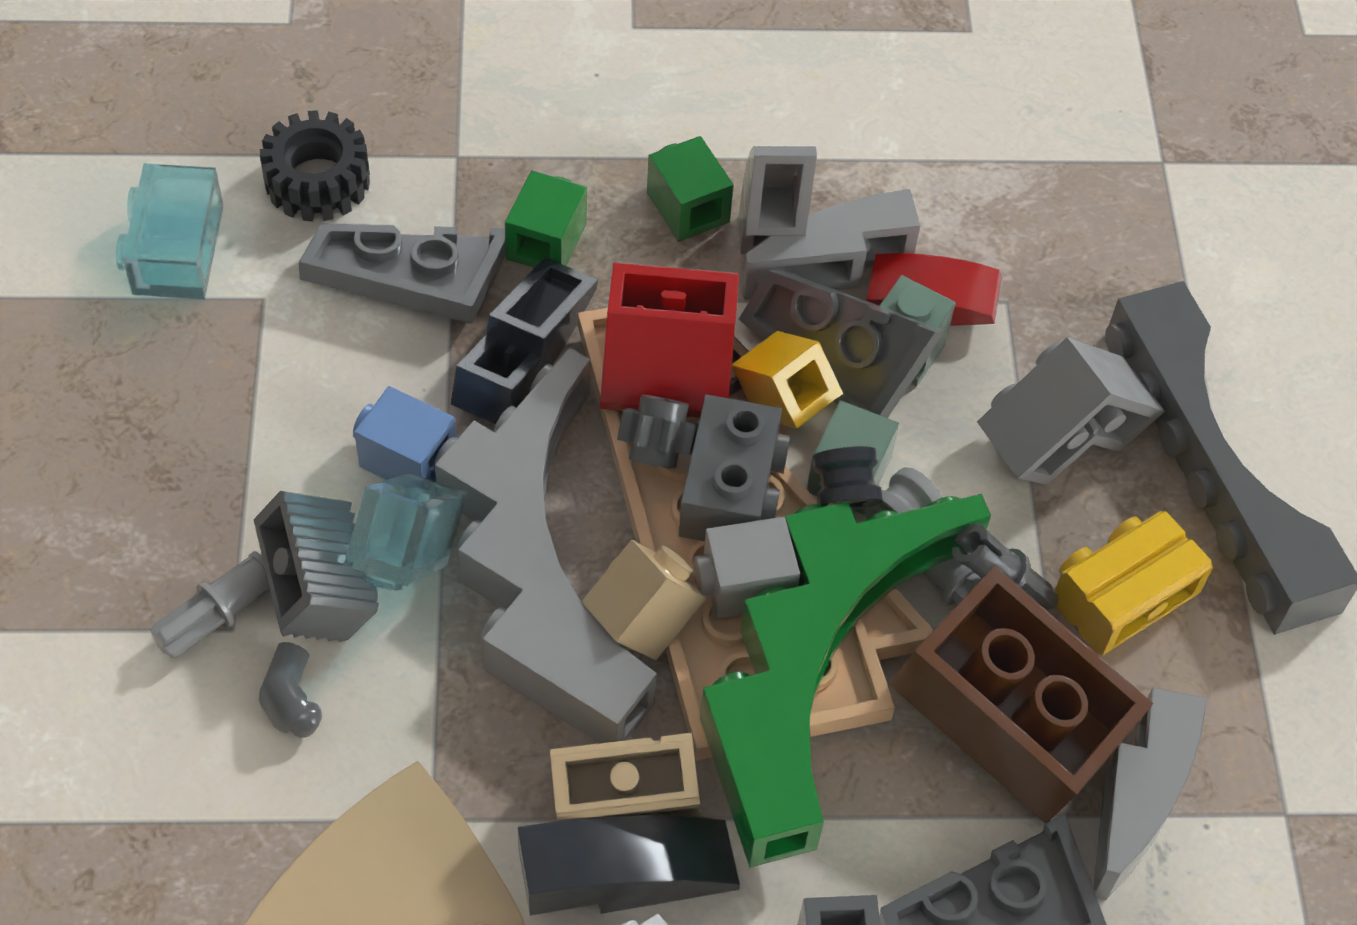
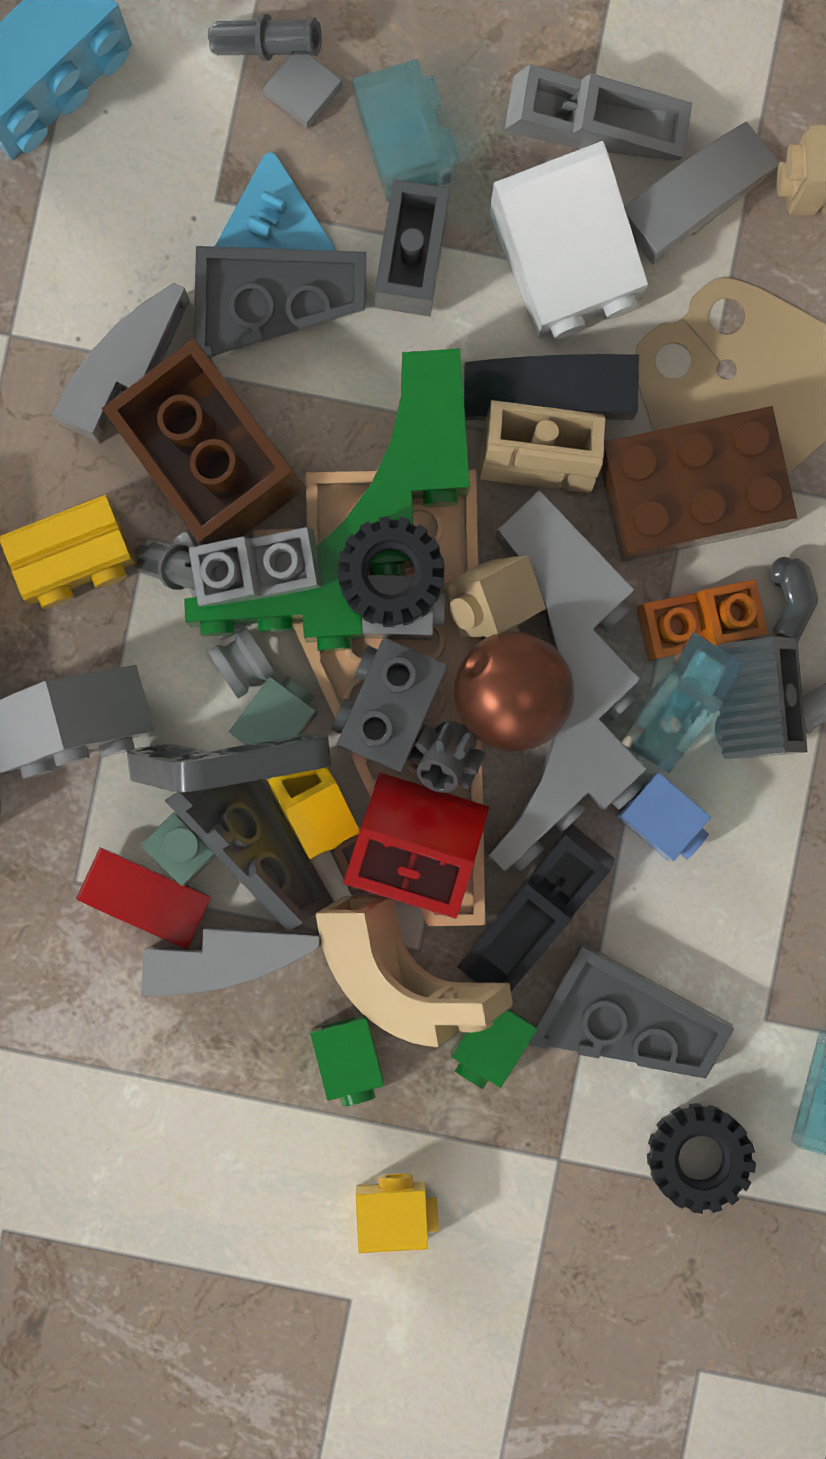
camera: 170 degrees left, 30 degrees up
(392, 655) = (716, 614): none -> orange slope
(427, 781) = (697, 484): none -> reddish brown brick
(599, 493) = (514, 691): none -> copper piece
(610, 76) = (395, 1215): none -> yellow brick
(637, 230) = (389, 986): none -> tan arch
(776, 193) = (277, 995): light grey slope -> none
(777, 532) = (397, 536): none -> black tyre
(818, 404) = (192, 769): none -> dark grey beam
(848, 477) = (295, 667): black wheel -> none
(927, 551) = (255, 567): none -> light grey slope

